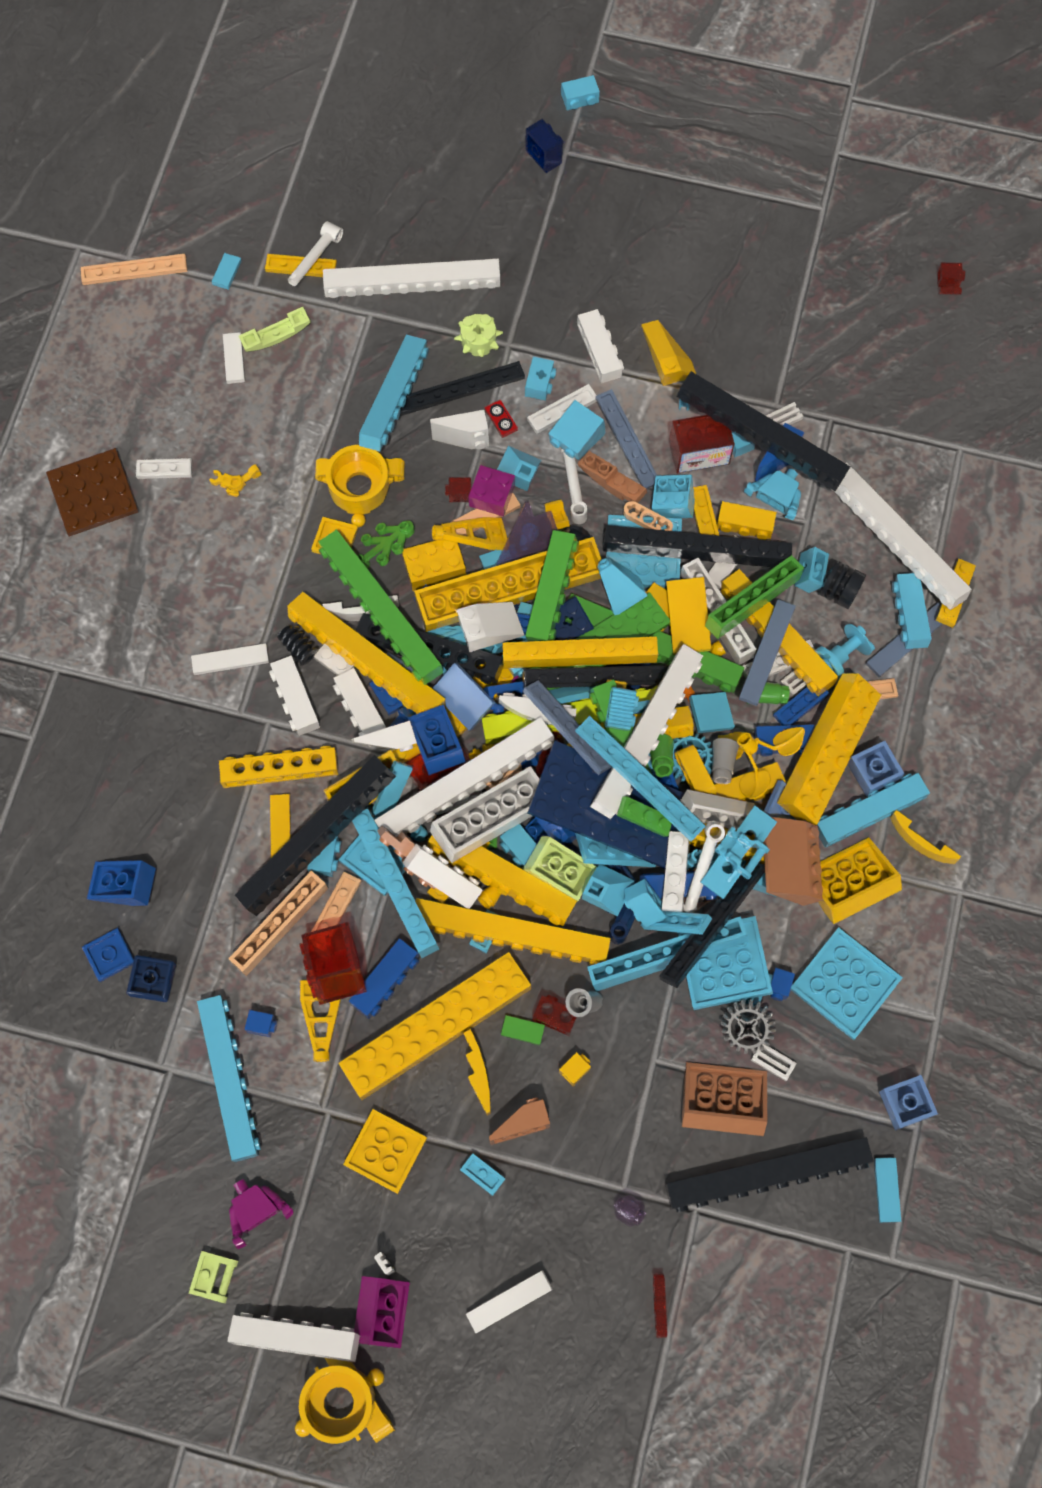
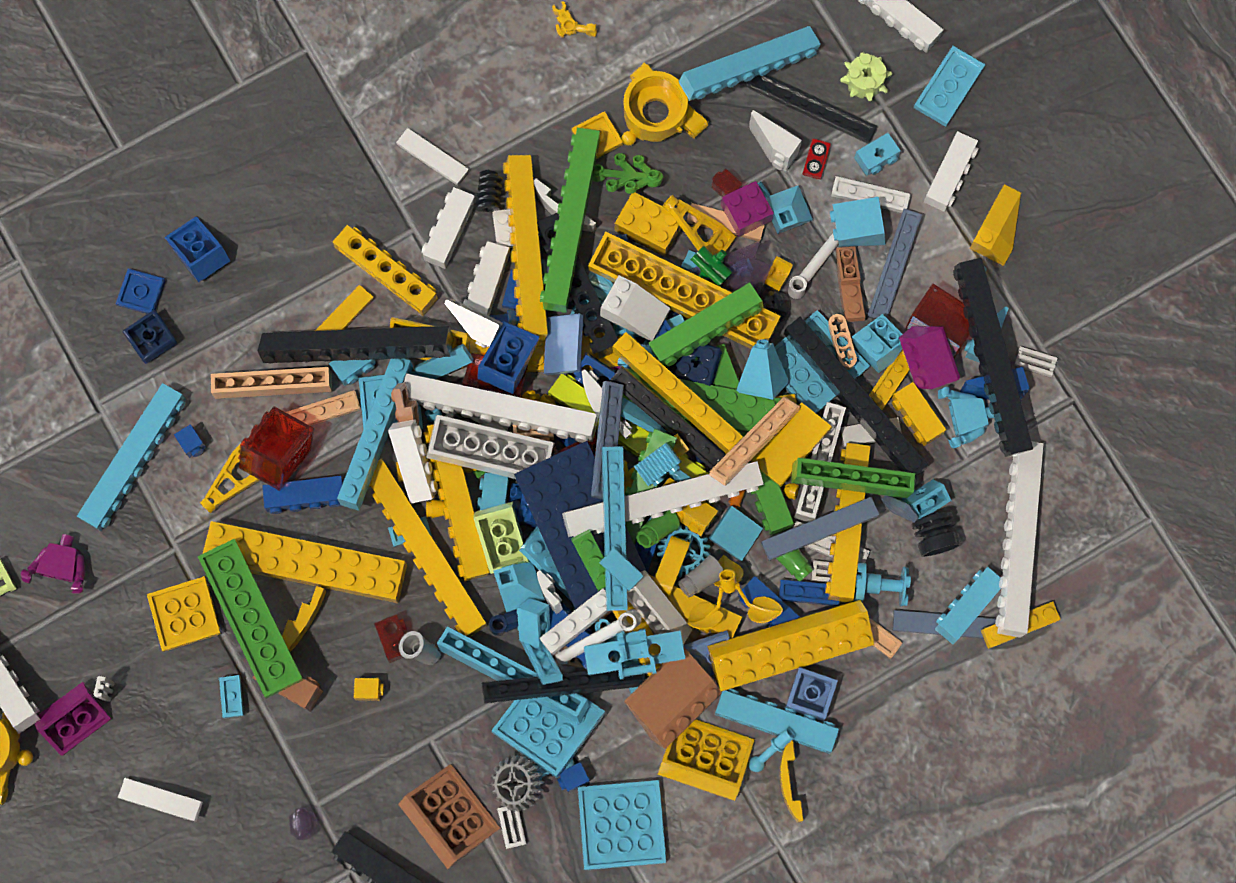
camera: 45 degrees right, 5 degrees up
(444, 1100) = (250, 618): none -> bright green plate
(510, 547) = (711, 265): none -> green pin
(522, 1030) = (361, 626): bright green tile -> none
(539, 293) = (949, 86): none -> medium azure plate
(628, 869) = (547, 587): none -> white slope
(666, 633) = (754, 441): none -> light nougat tile
(674, 801) = (621, 569): none -> medium azure tile
(718, 472) = (929, 356): none -> magenta slope
(802, 590) = (900, 508): none -> sand blue tile
(891, 821) = (757, 763): none -> medium azure pin

